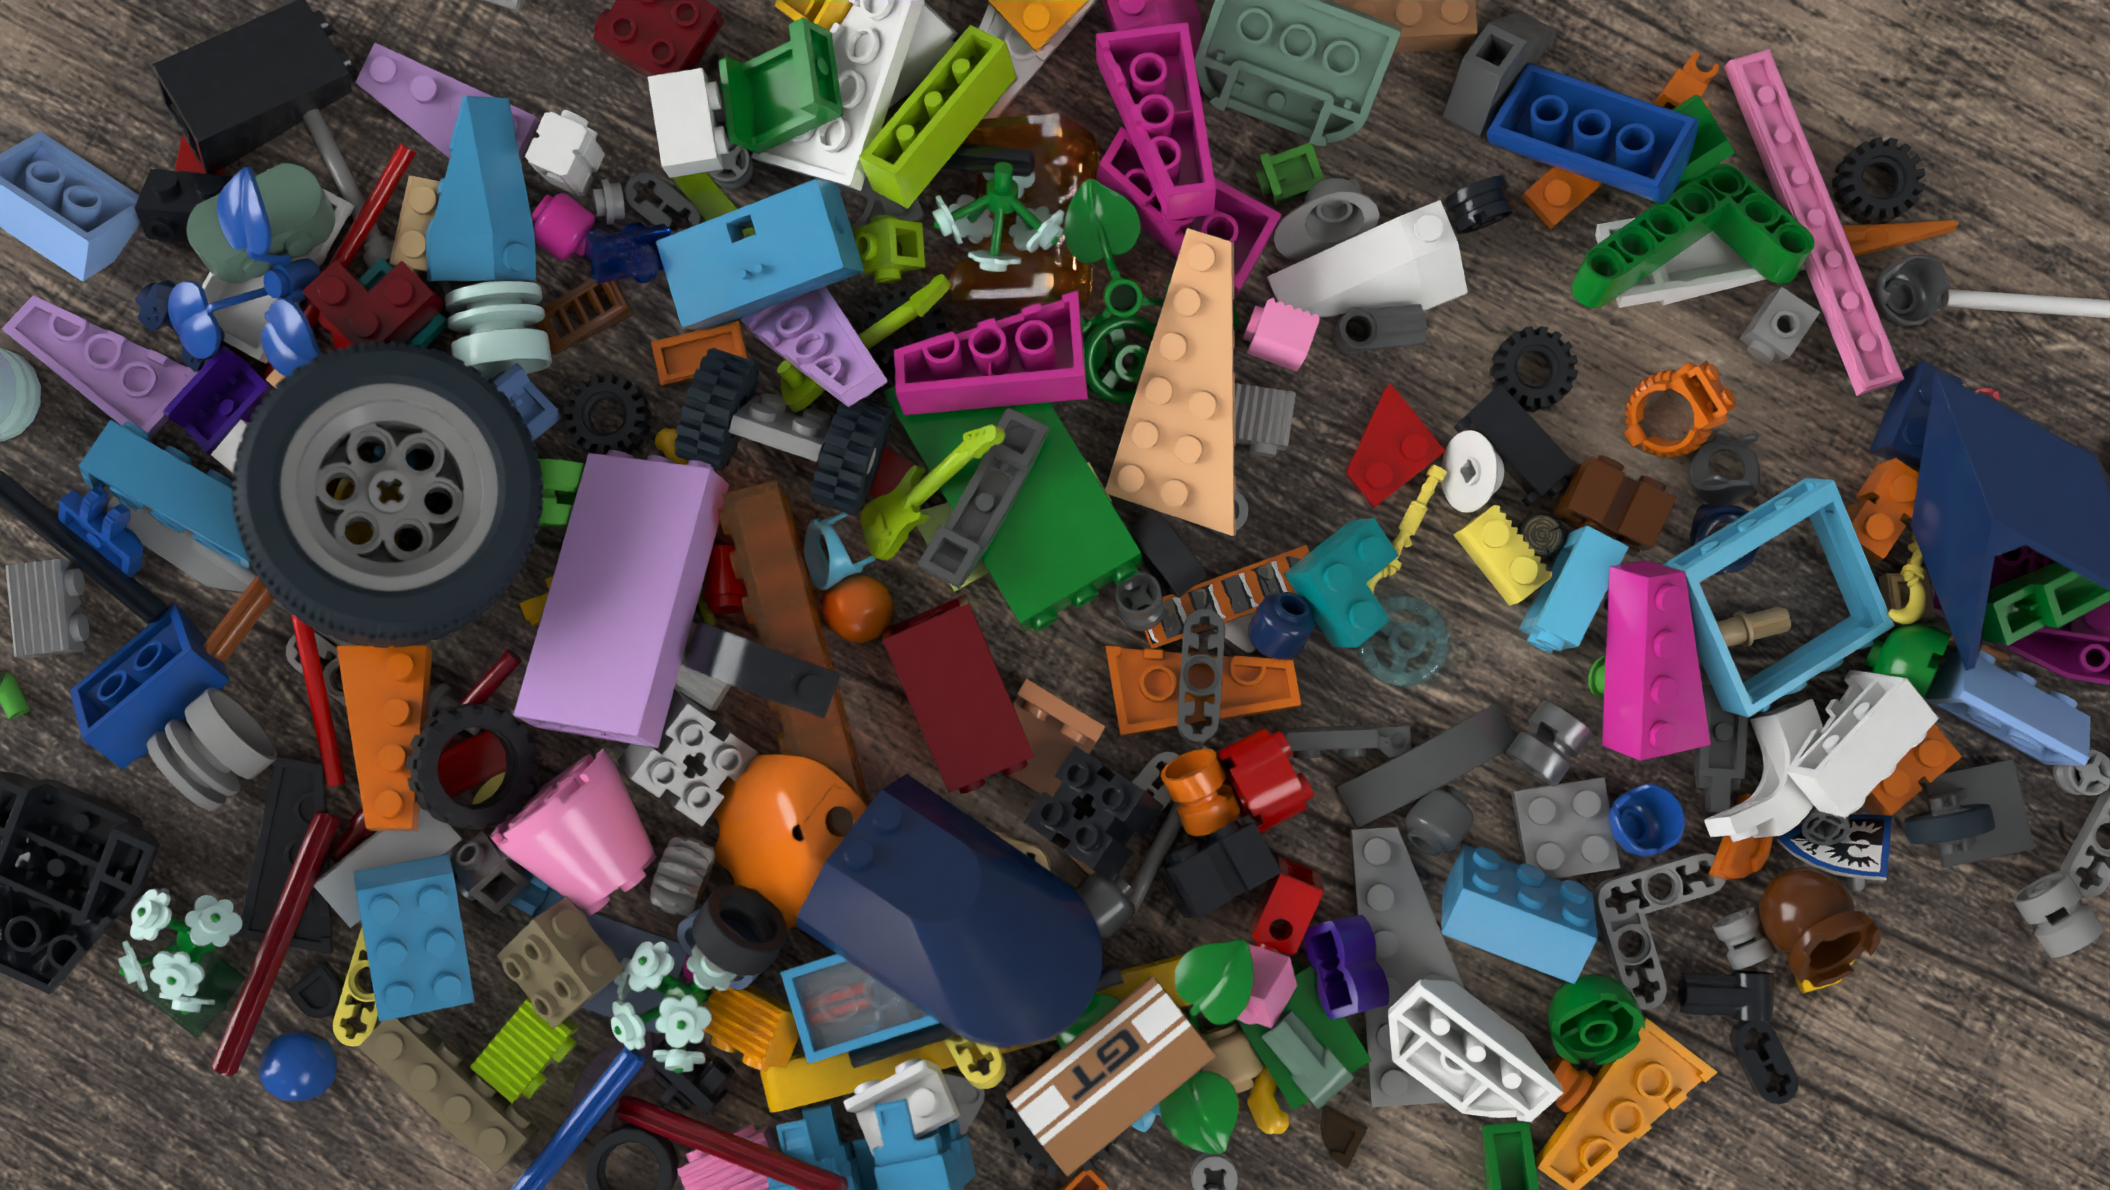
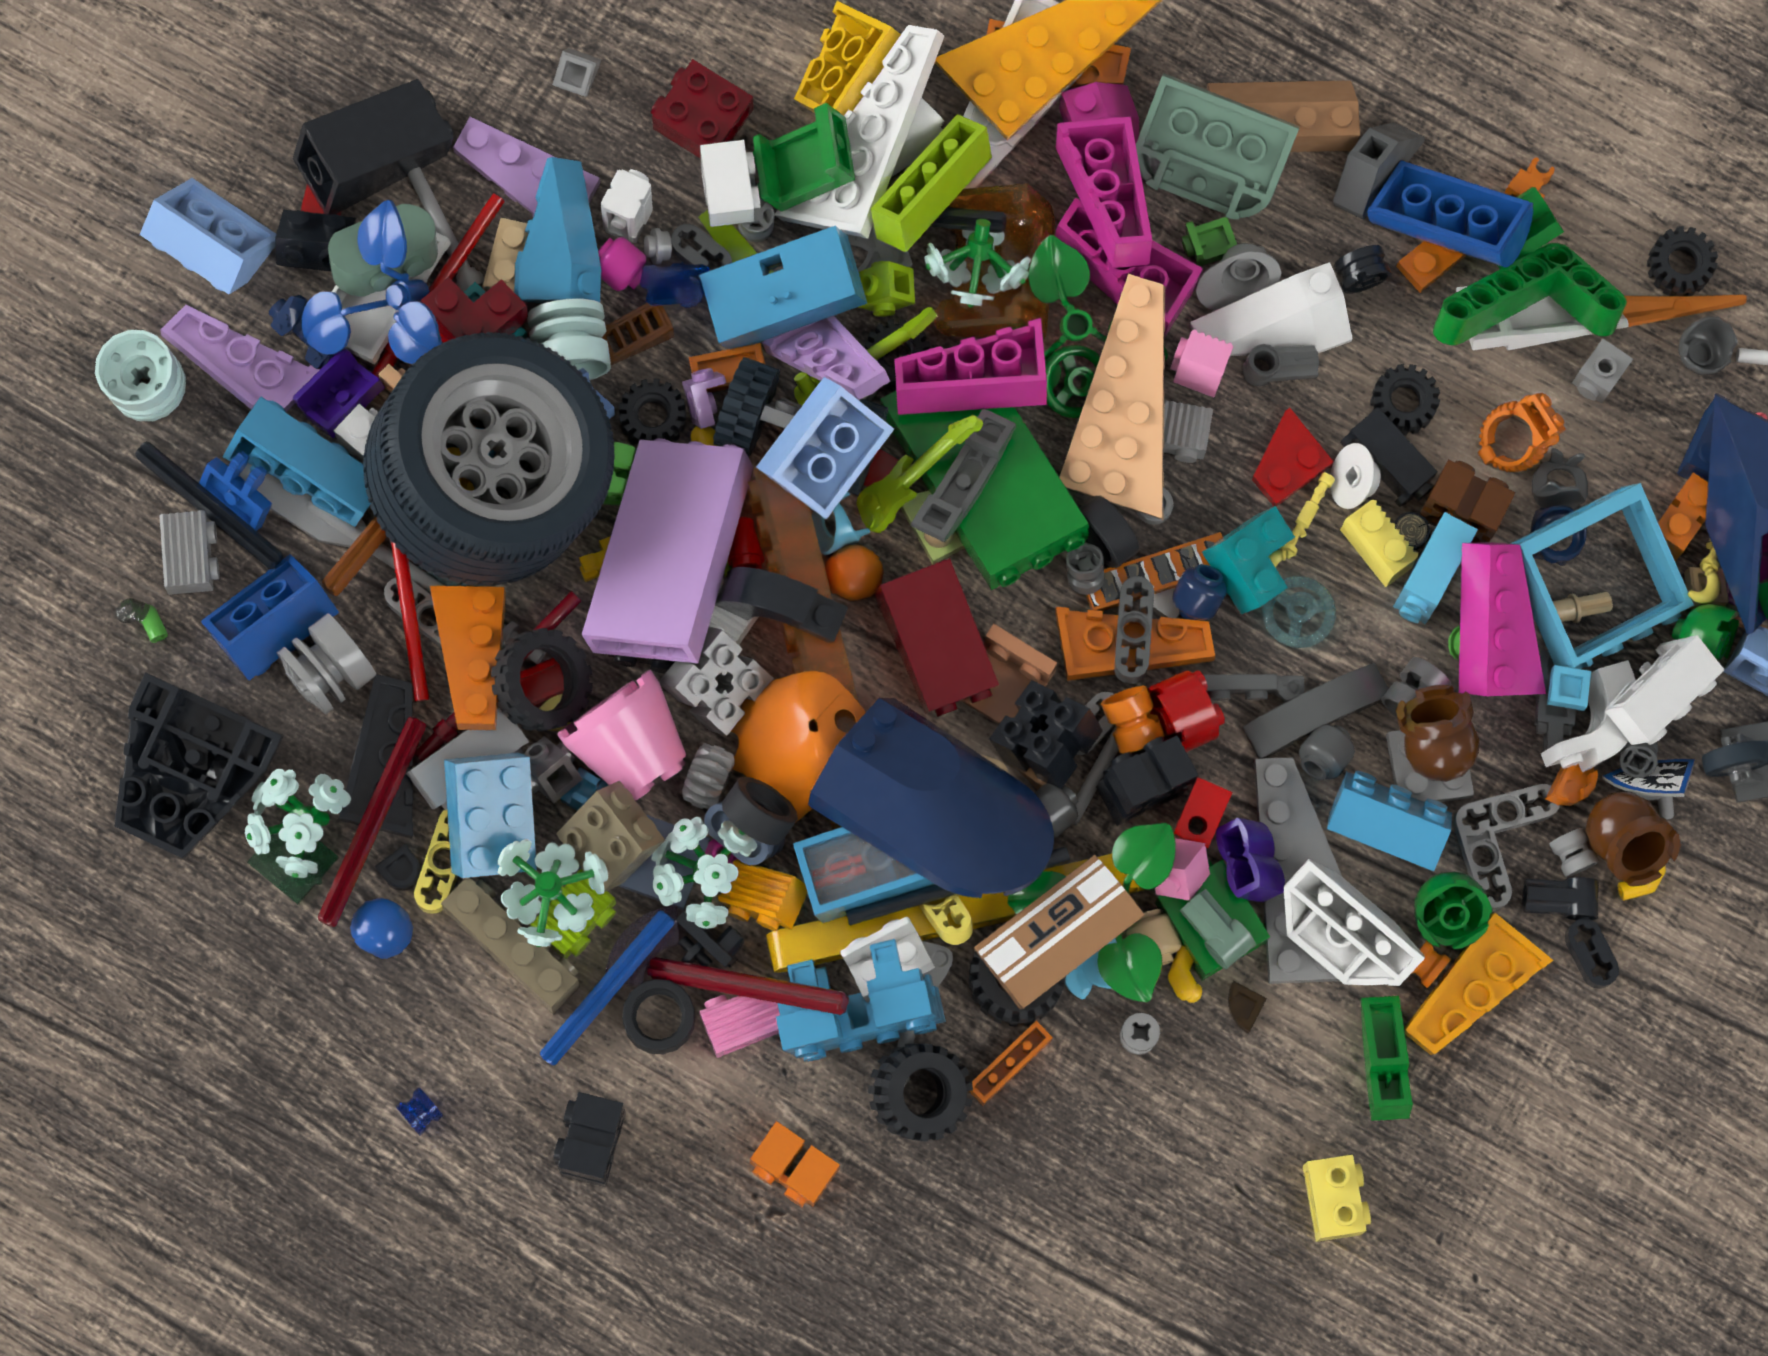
camera: 10 degrees left, 10 degrees down
(464, 1043) = (557, 869): none -> light aqua plant
(666, 402) = (700, 403): none -> lavender bracket
(805, 473) = (825, 447): none -> light blue slope
(1580, 805) = (1439, 732): none -> reddish brown tile
(1647, 820) = (1499, 755): blue hair -> none
(1740, 740) = (1569, 687): none -> medium azure tile
(1805, 197) = (1621, 268): bright pink tile -> none
(1917, 766) = (1704, 720): orange piece -> none

